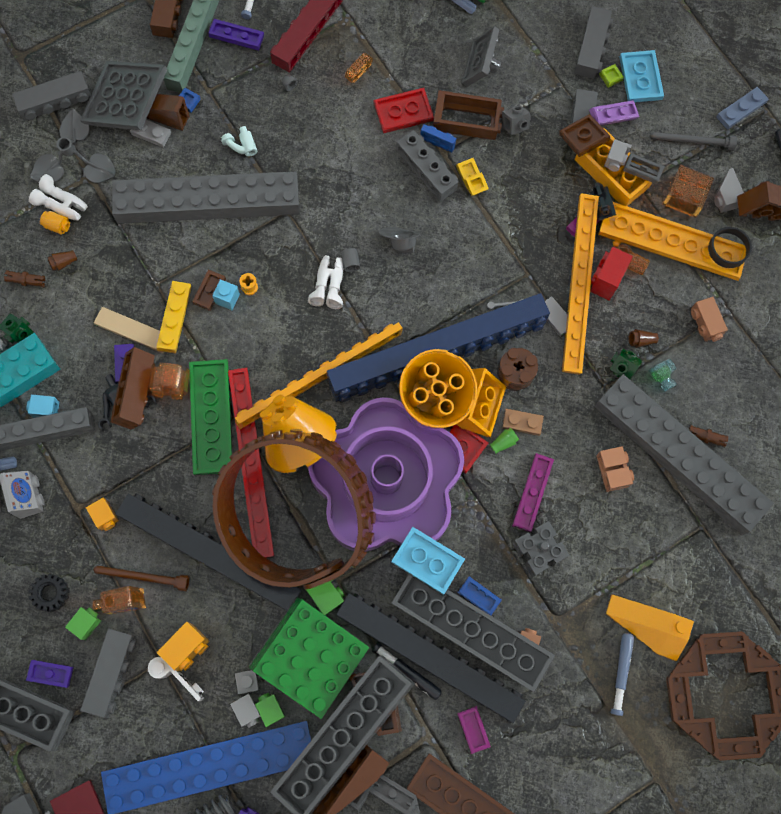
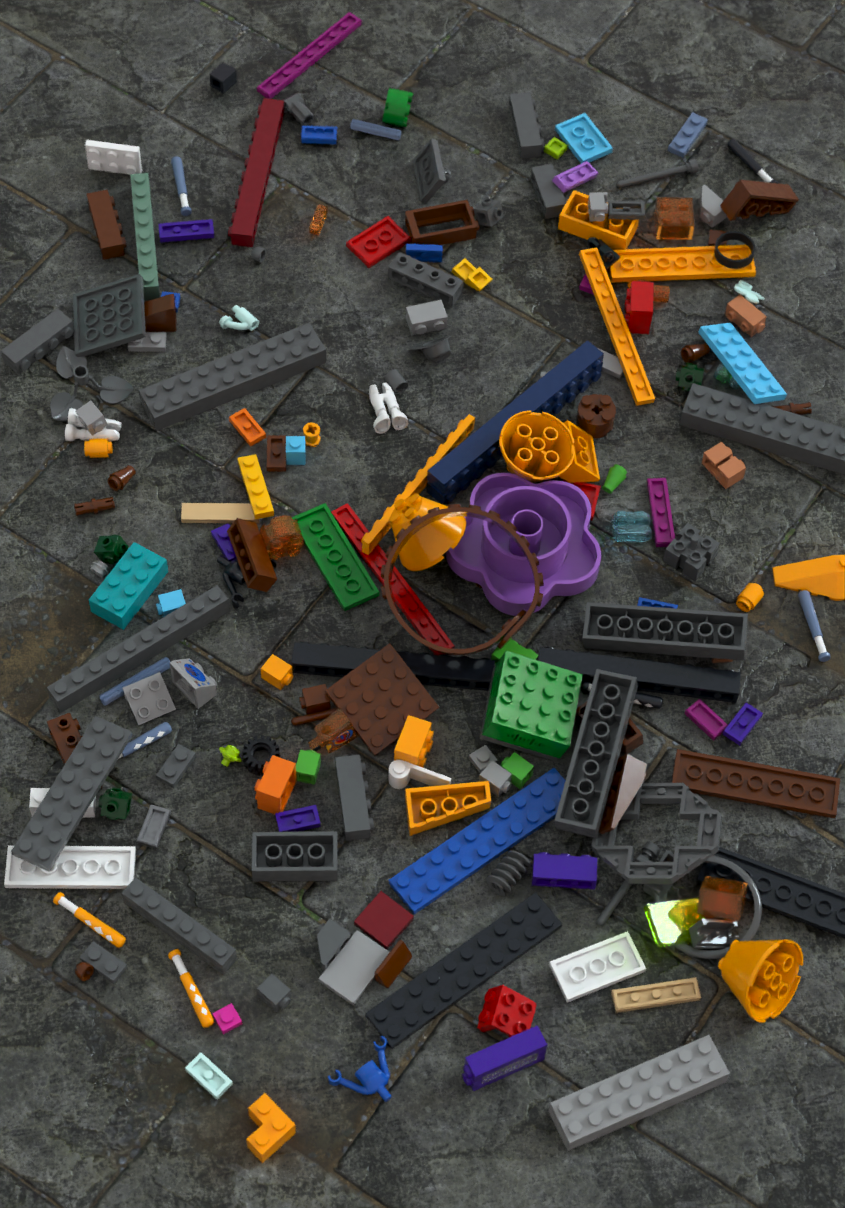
camera: 20 degrees left, 15 degrees down
(21, 581) = (230, 754): none -> lime plant
(40, 635) = (276, 785): none -> orange brick
(57, 192) = (91, 418): none -> light grey brick
(123, 557) = (314, 699): none -> reddish brown brick
(179, 586) = (380, 698): none -> reddish brown plate
(183, 718) = (444, 803): none -> light orange wedge
(196, 253) = (247, 427): none -> orange plate
(409, 205) = (426, 317): none -> light grey brick
(428, 560) = (598, 586): medium azure plate -> none
(504, 751) = (742, 723): none -> dark purple plate
(506, 493) = (631, 526): none -> clear light blue brick
(523, 422) = (625, 457): medium nougat plate -> none
(574, 619) = (749, 597): none -> light orange brick
(584, 135) = (559, 201): reddish brown tile -> none
(681, 371) = (742, 363): none -> medium azure plate
(717, 224) = (713, 235): none -> reddish brown tile
(720, 292) = (745, 289): none -> light aqua plate

